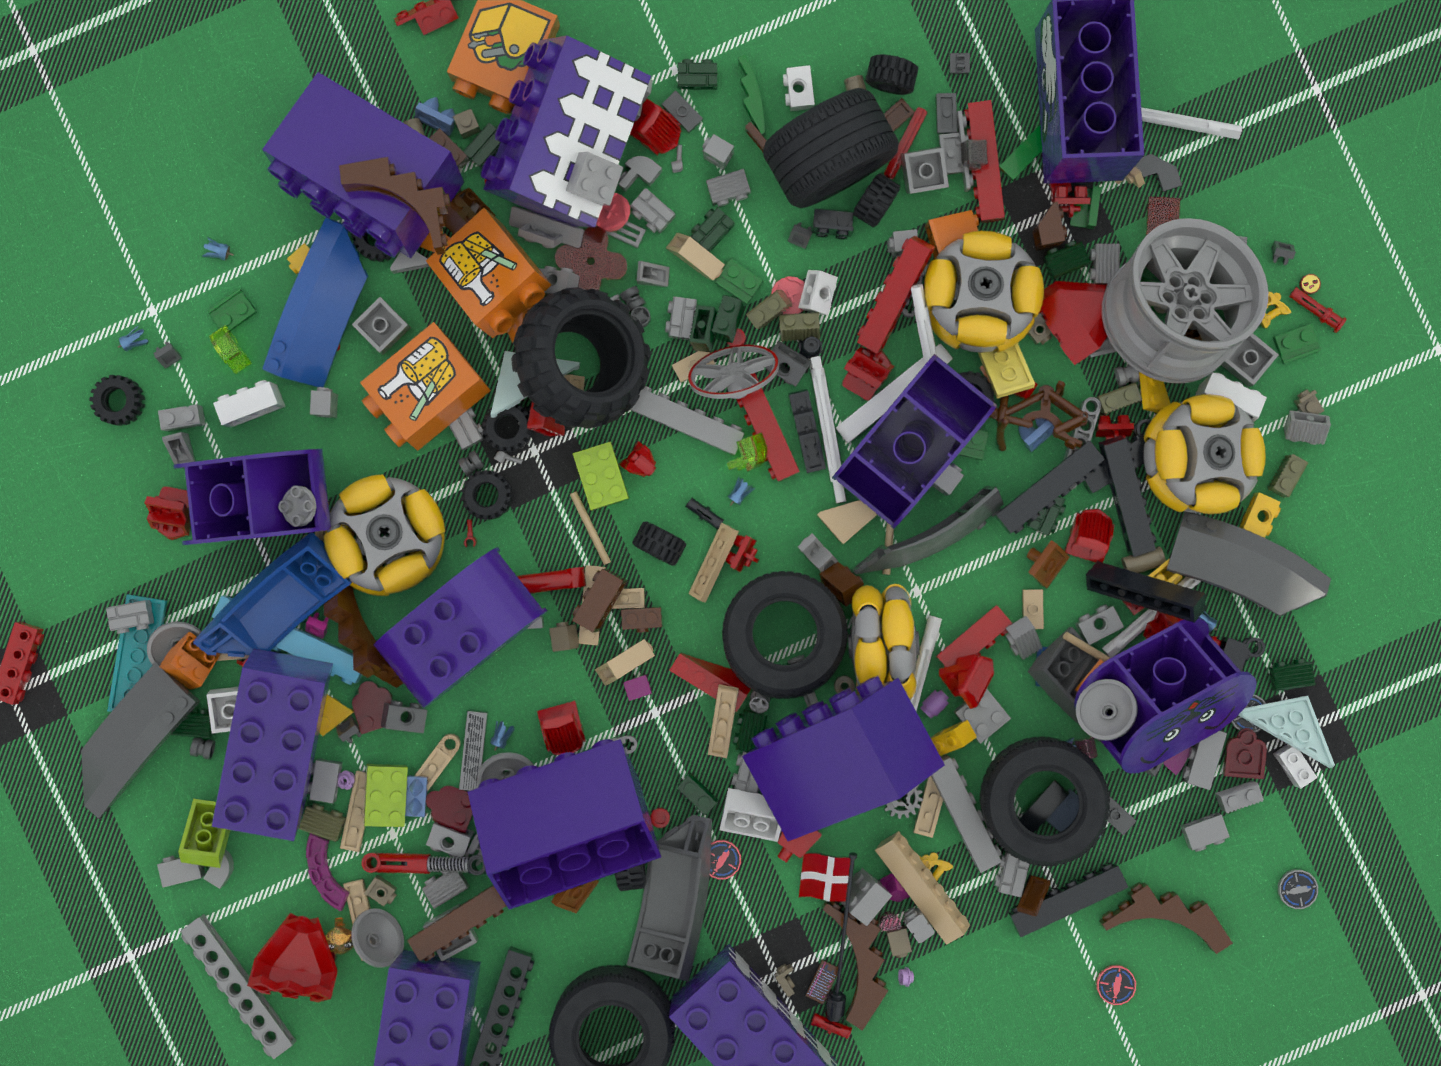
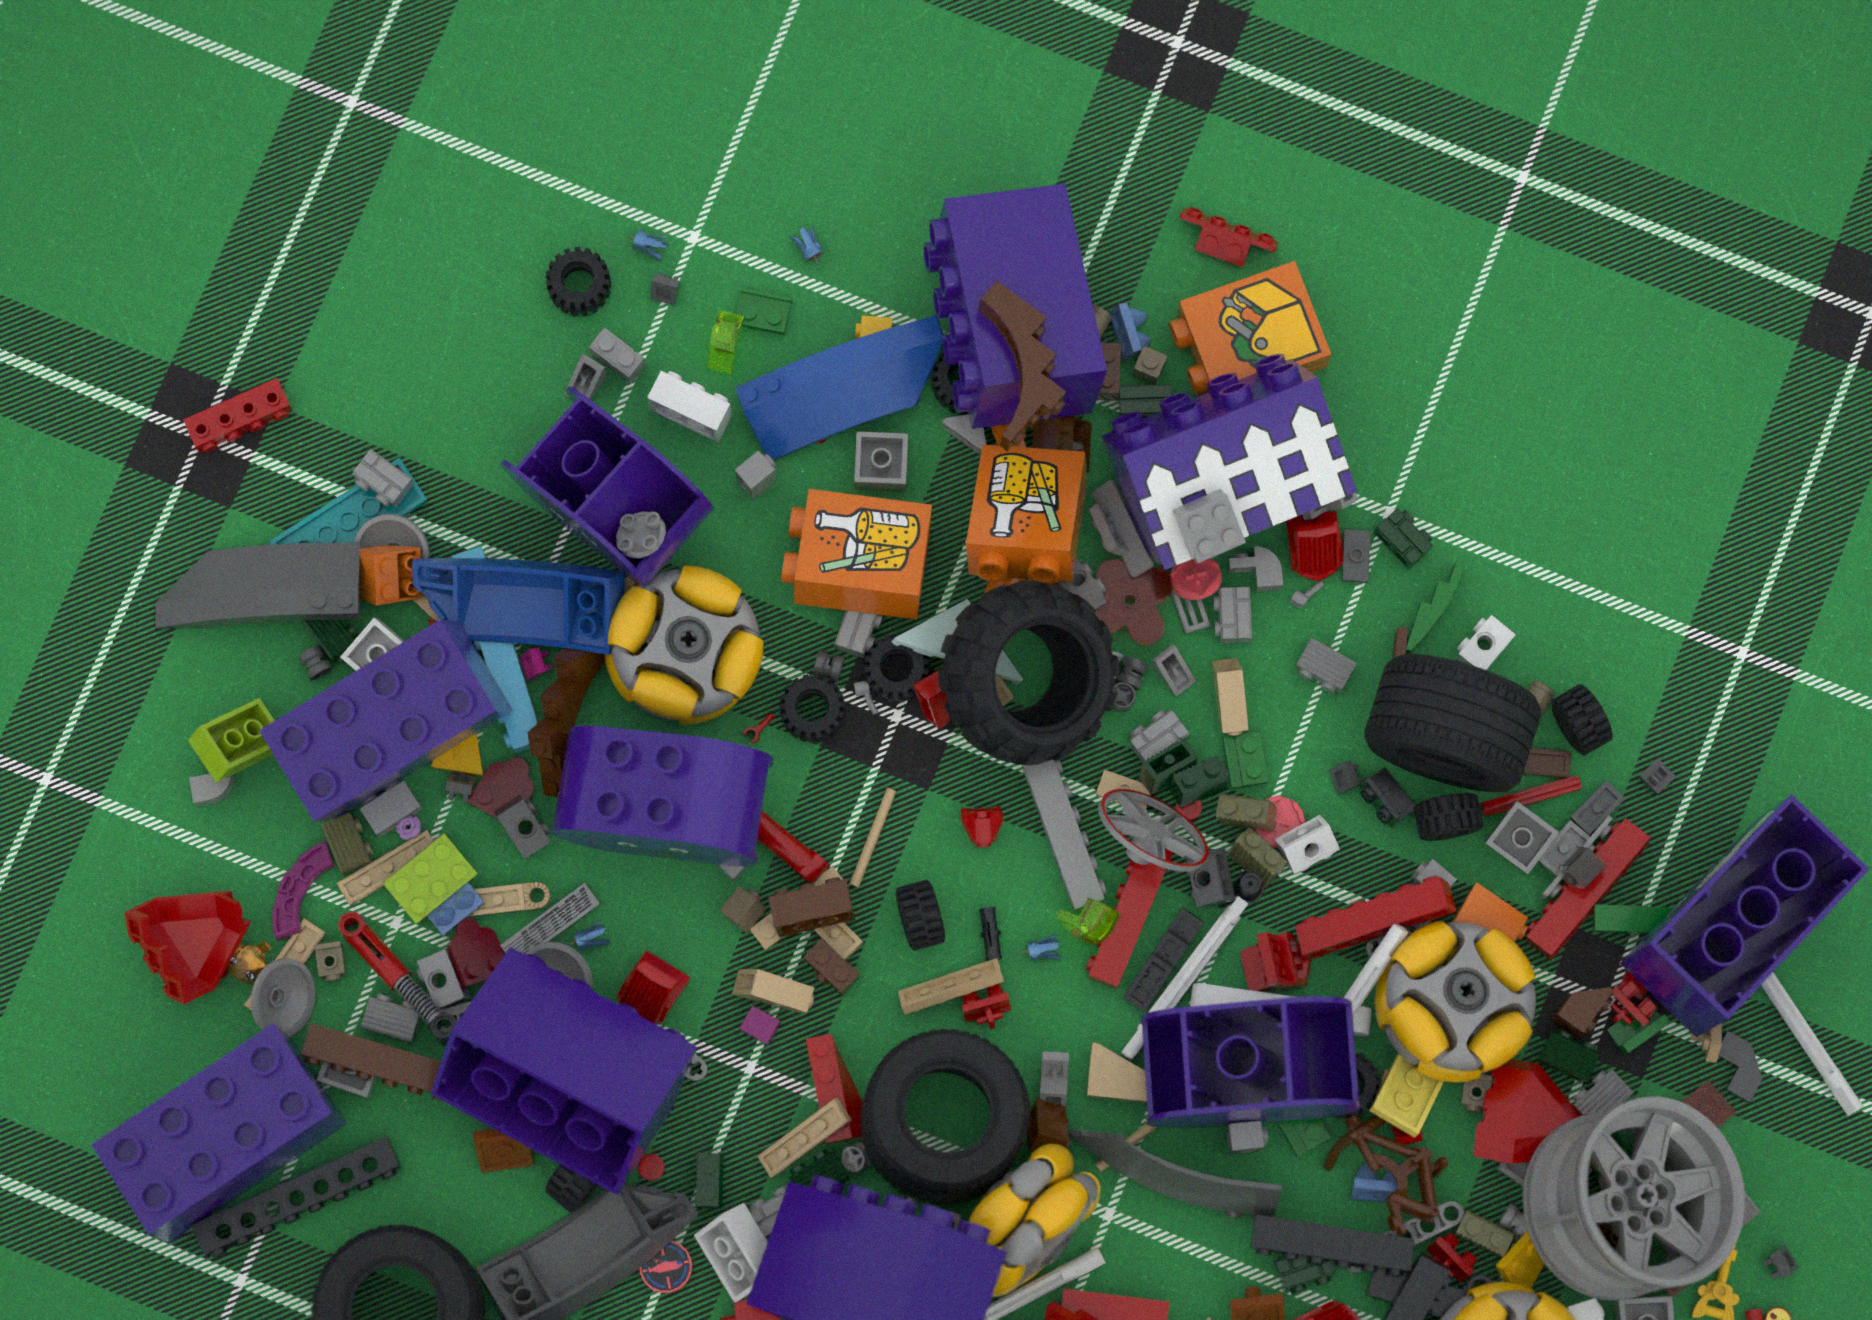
camera: 50 degrees right, 10 degrees down
(169, 513) = (515, 427): red piece -> none
(175, 872) = (174, 749): light grey brick -> none
(237, 974) = (98, 1000): light grey brick -> none
(601, 476) = (932, 800): lime brick -> none
(712, 229) = (1270, 688): dark green brick -> none
(717, 151) = (1349, 623): light grey brick -> none

